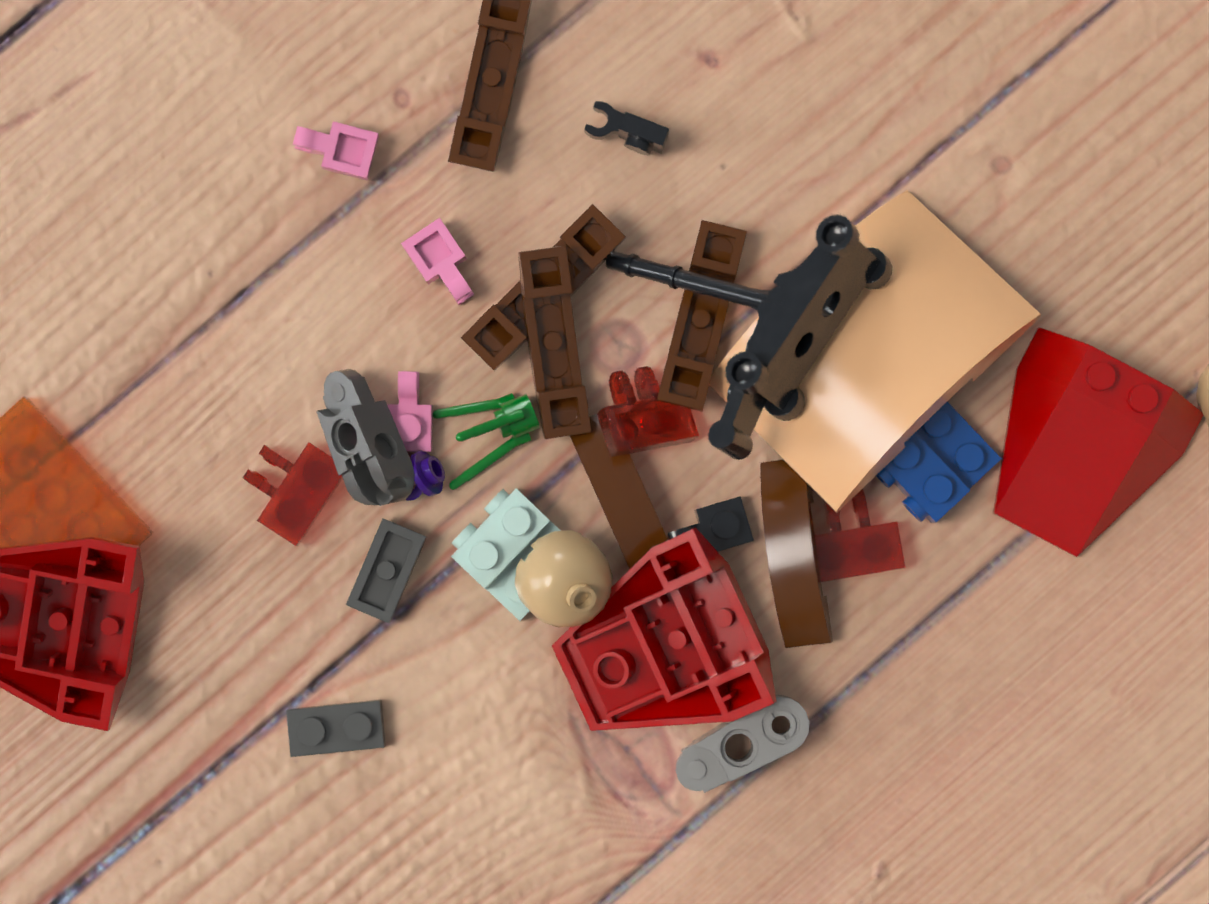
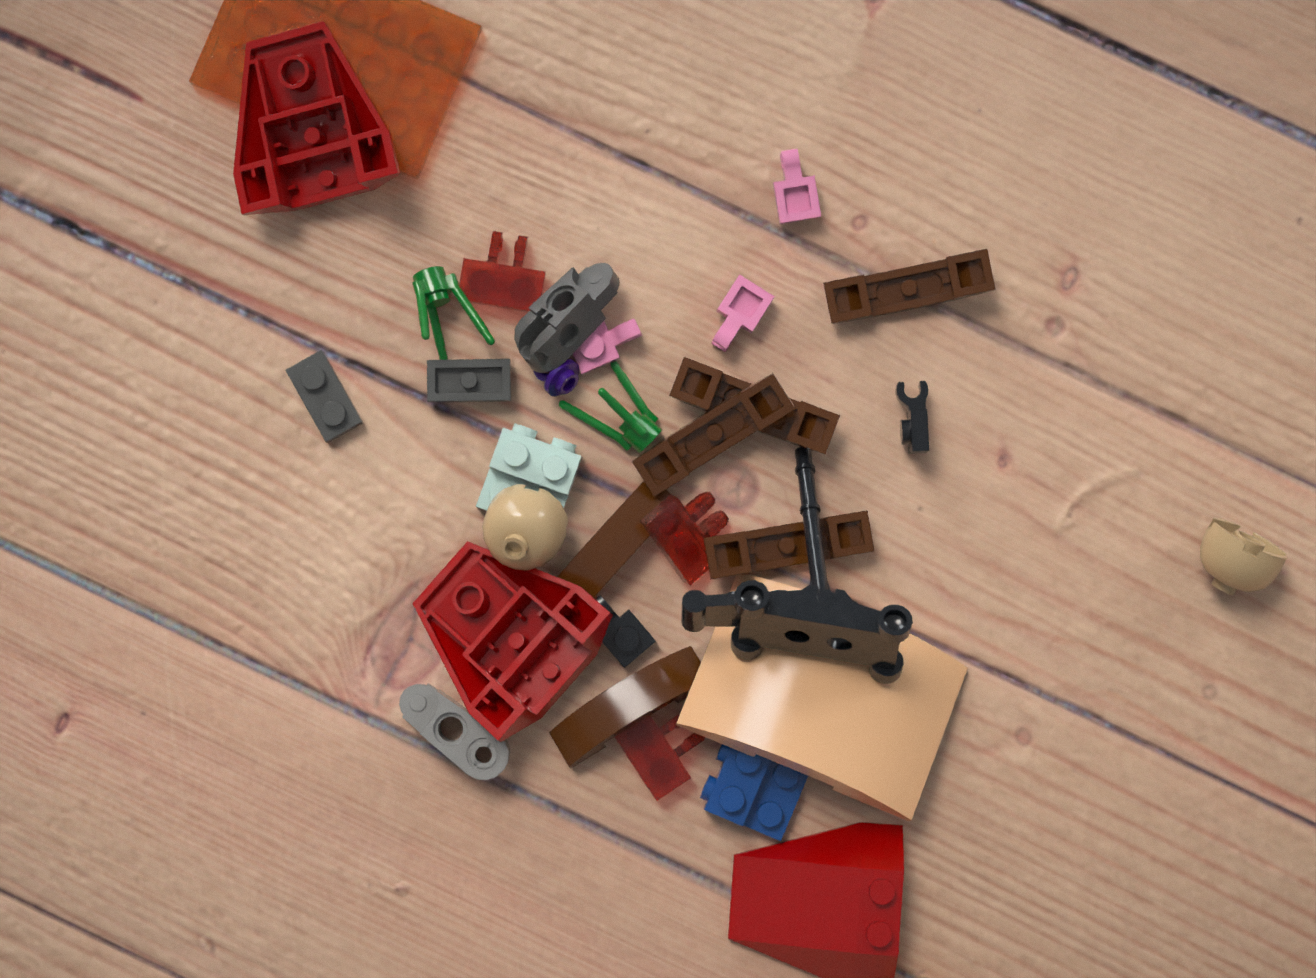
camera: 65 degrees right, 0 degrees up
(276, 567) = (433, 291): none -> green plant

